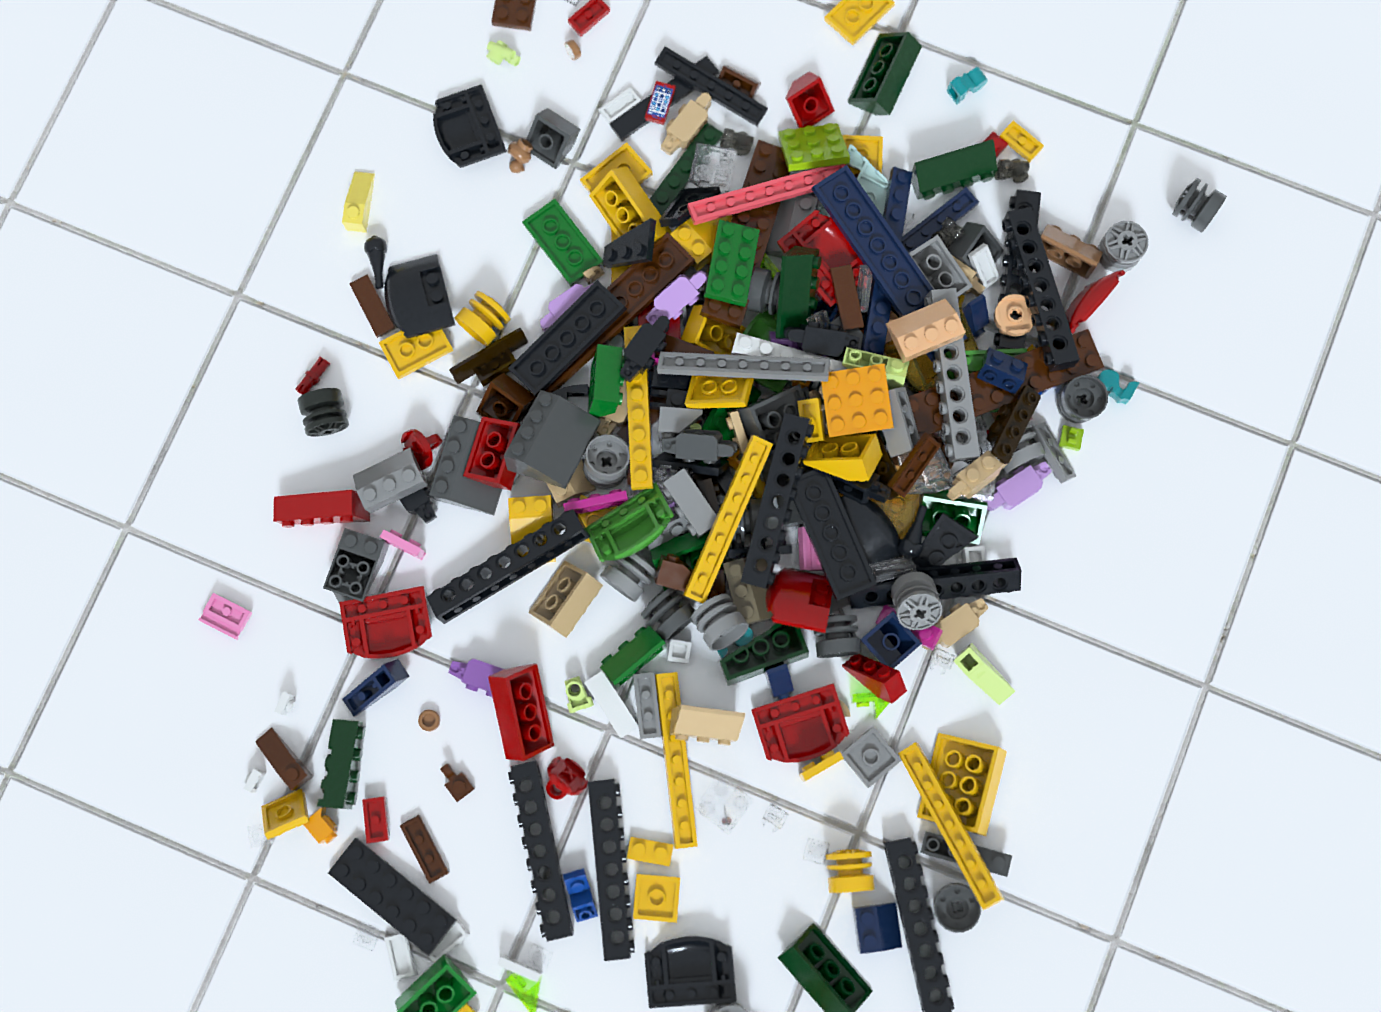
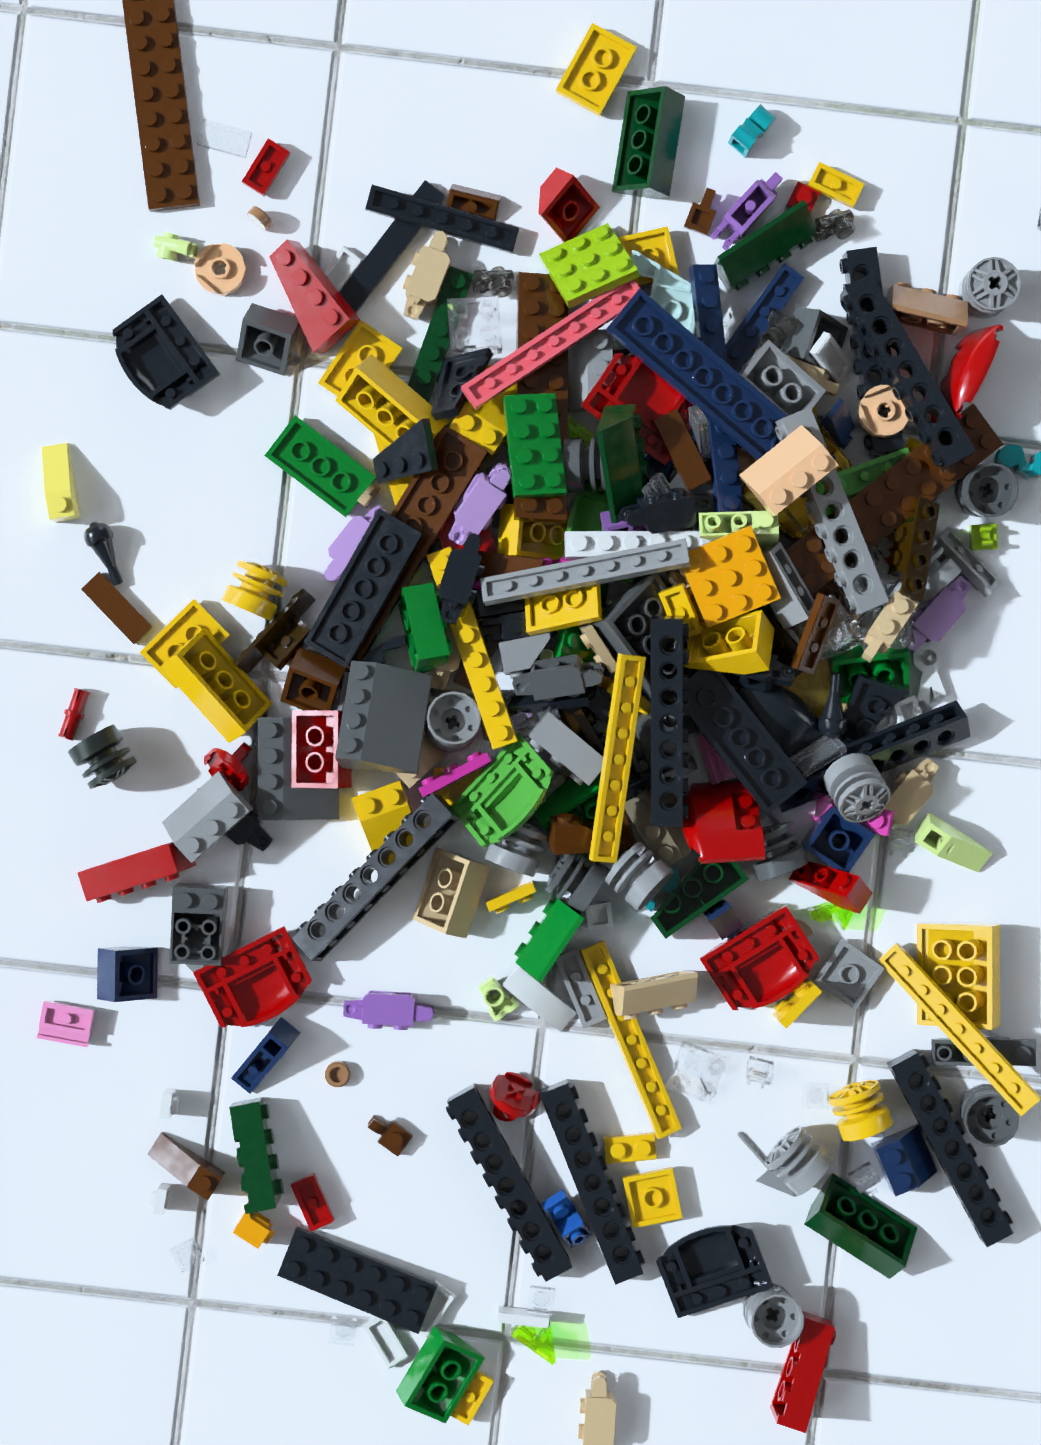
camera: 20 degrees left, 10 degrees up
(284, 814) = (209, 1227): yellow plate -> none
(287, 589) = (127, 973): none -> dark blue slope
(410, 547) = (254, 885): bright pink plate -> none
(418, 297) = (168, 583): black slope -> none
(424, 849) = (376, 1217): reddish brown tile -> none
(429, 382) = (216, 685): none -> yellow slope
(521, 152) = (237, 369): medium nougat animal -> none
(521, 712) = (441, 1039): red slope -> none
(534, 89) = (218, 254): none -> light nougat plate
(595, 117) = (315, 300): none -> wedge
(621, 614) = (501, 902): none -> yellow plate
(660, 103) = (386, 258): tile -> none
(765, 911) = (768, 1177): none -> light grey piece
(787, 899) = (800, 1162): none -> light grey wheel
(839, 934) = (865, 1178): none -> clear tile
(911, 136) = (700, 215): none -> reddish brown plate
(949, 138) = (748, 209): none -> medium lavender hinge
(1002, 370) = (888, 487): dark blue bracket -> none
(1002, 521) = (928, 660): none -> white piece

